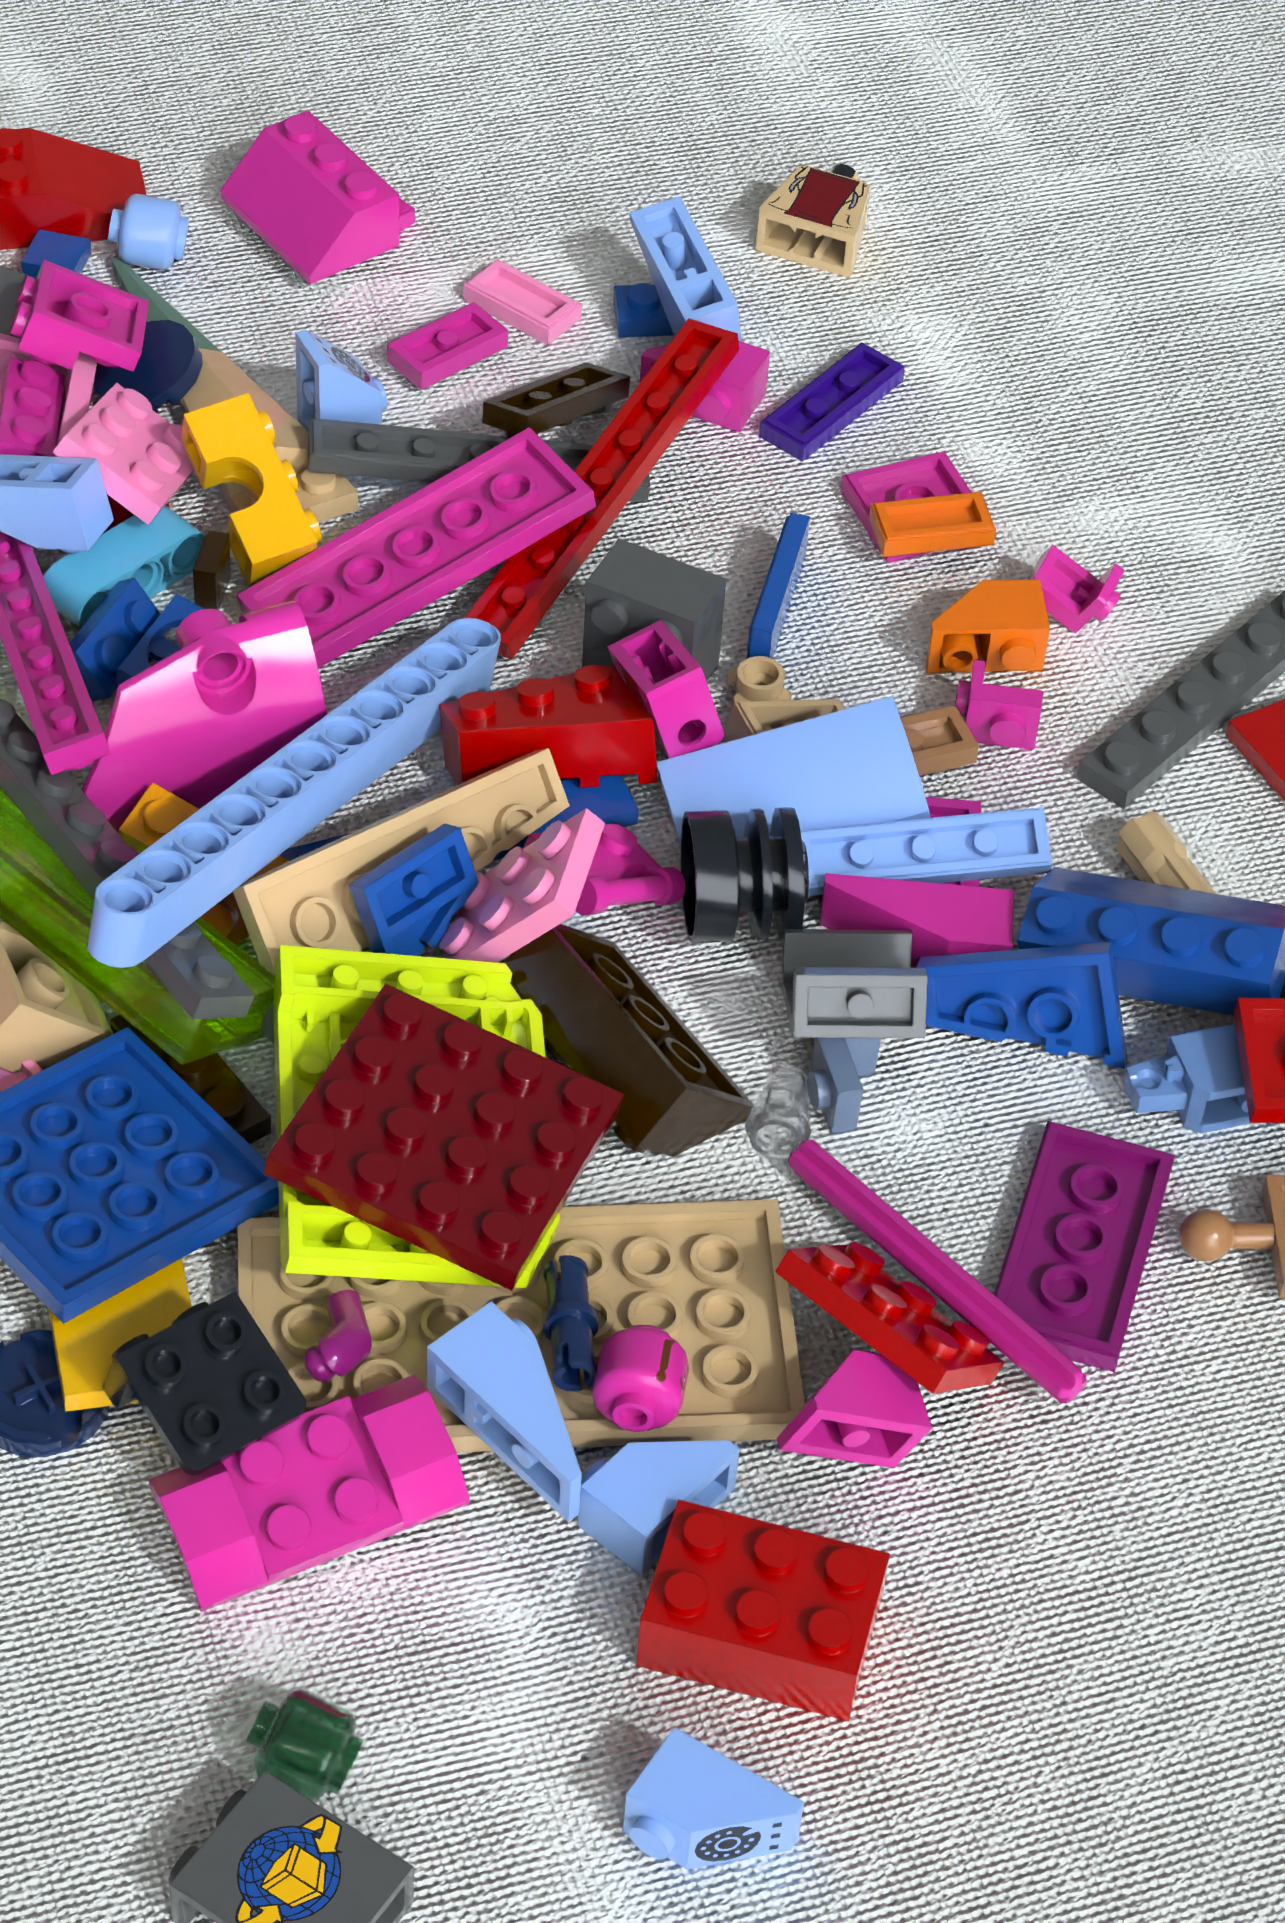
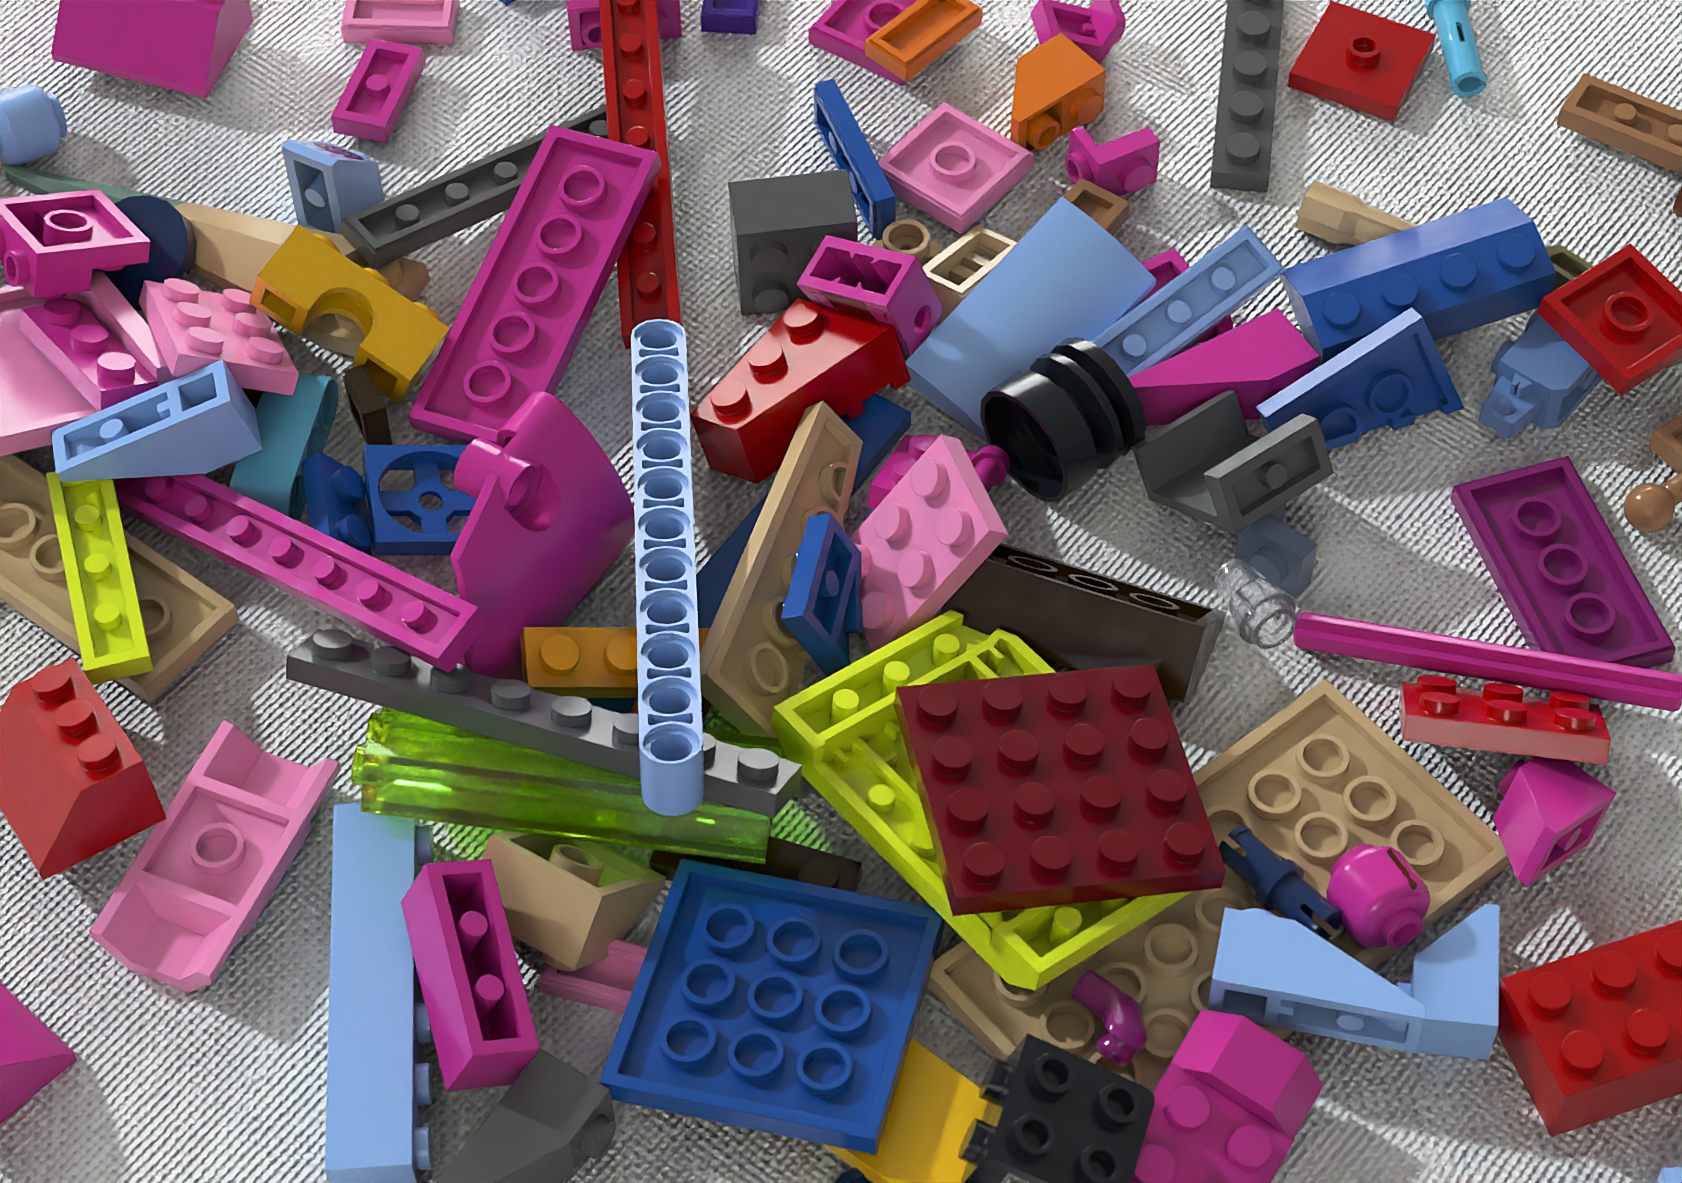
camera: 30 degrees left, 5 degrees up
(556, 399) = (525, 90): dark brown plate -> none
(859, 643) = (954, 167): none -> bright pink plate

